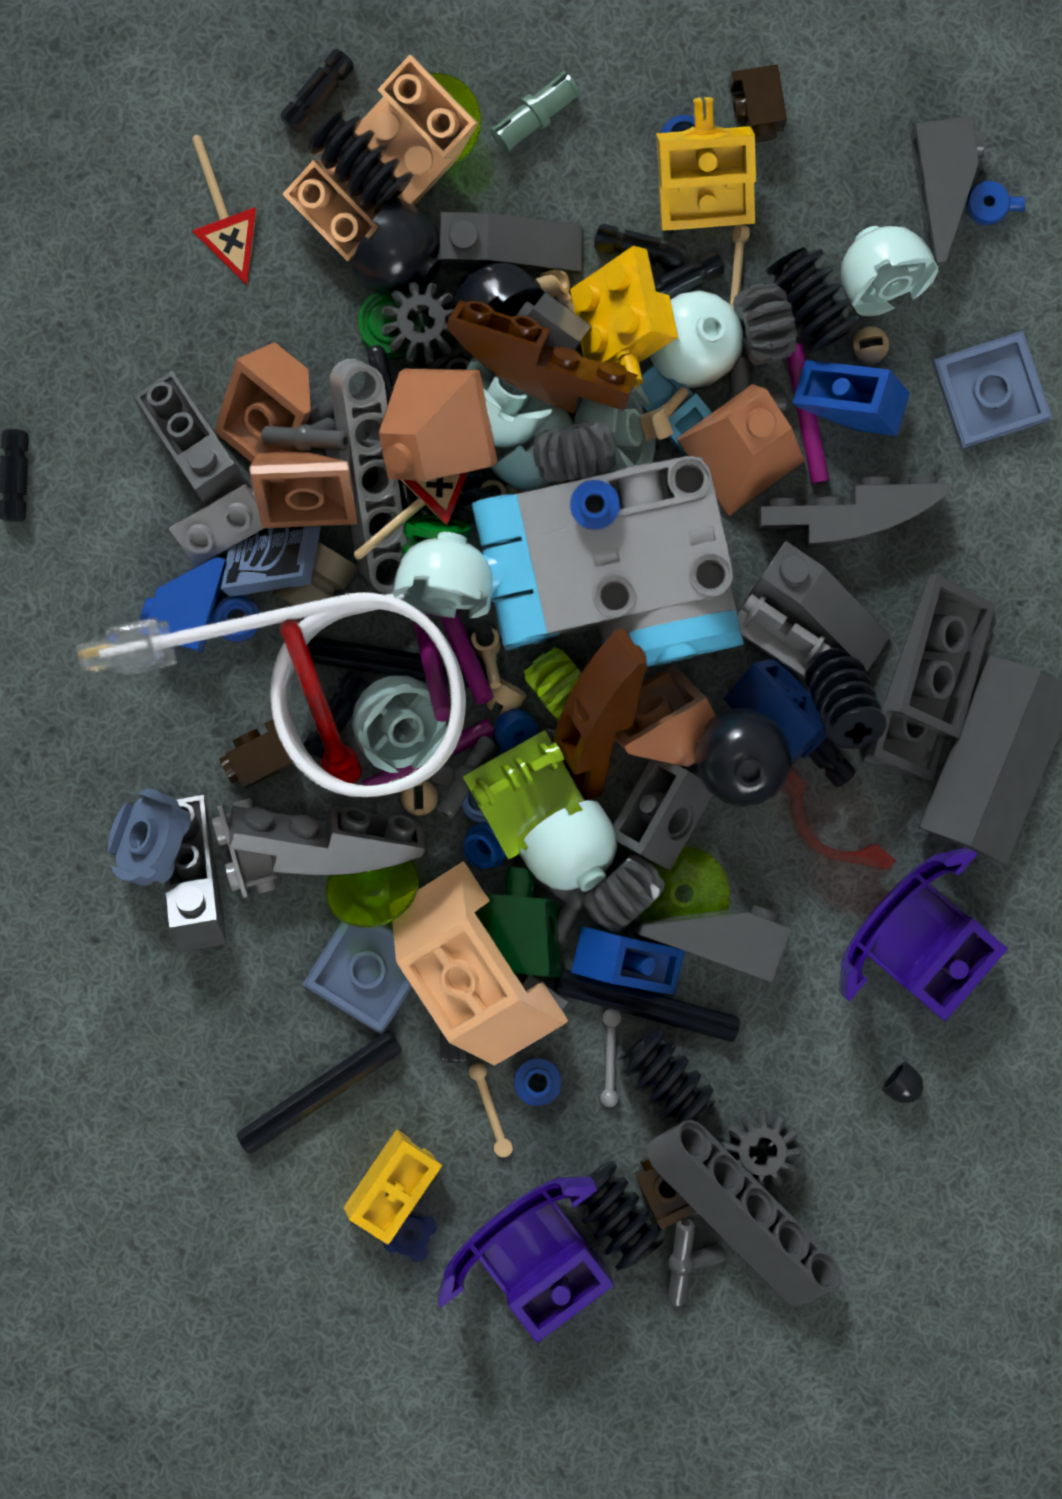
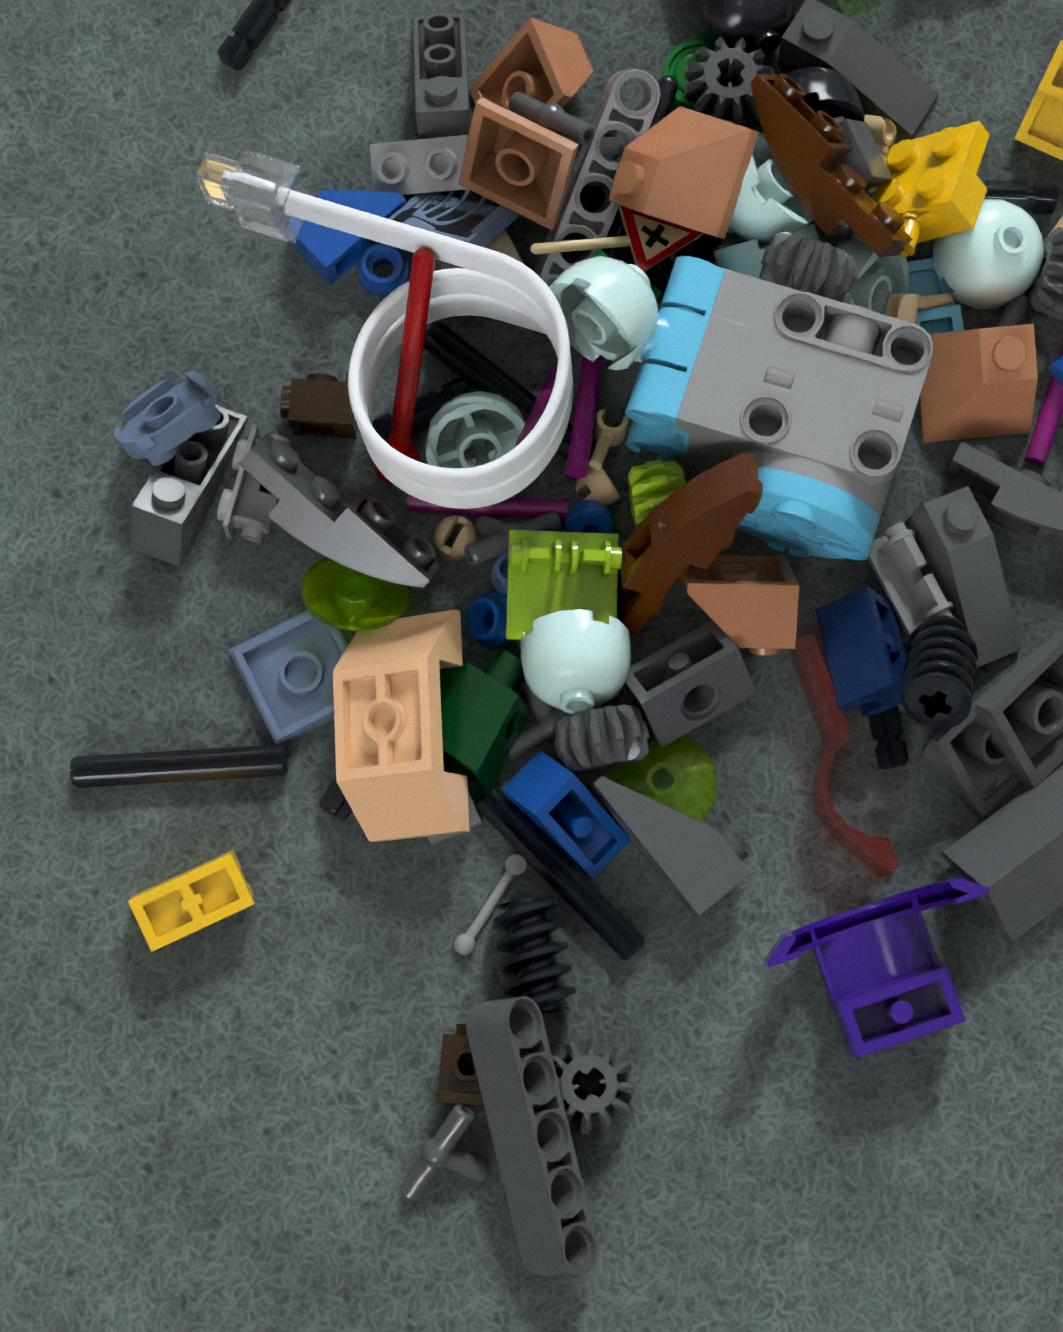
camera: 30 degrees right, 10 degrees down
(416, 1246) = (179, 977): clear blue plate -> none
(503, 1146) = (328, 929): tan hinge -> none
(535, 1258) = (290, 1056): dark purple piece -> none
(543, 1067) = (415, 895): blue plate -> none
(598, 520) = (797, 332): blue plate -> none
(618, 1219) = (398, 1065): black piece -> none
(669, 254) = (1007, 166): black axle -> none
(743, 757) = (802, 666): black cylinder -> none
(904, 1084) = (776, 1109): black hinge -> none

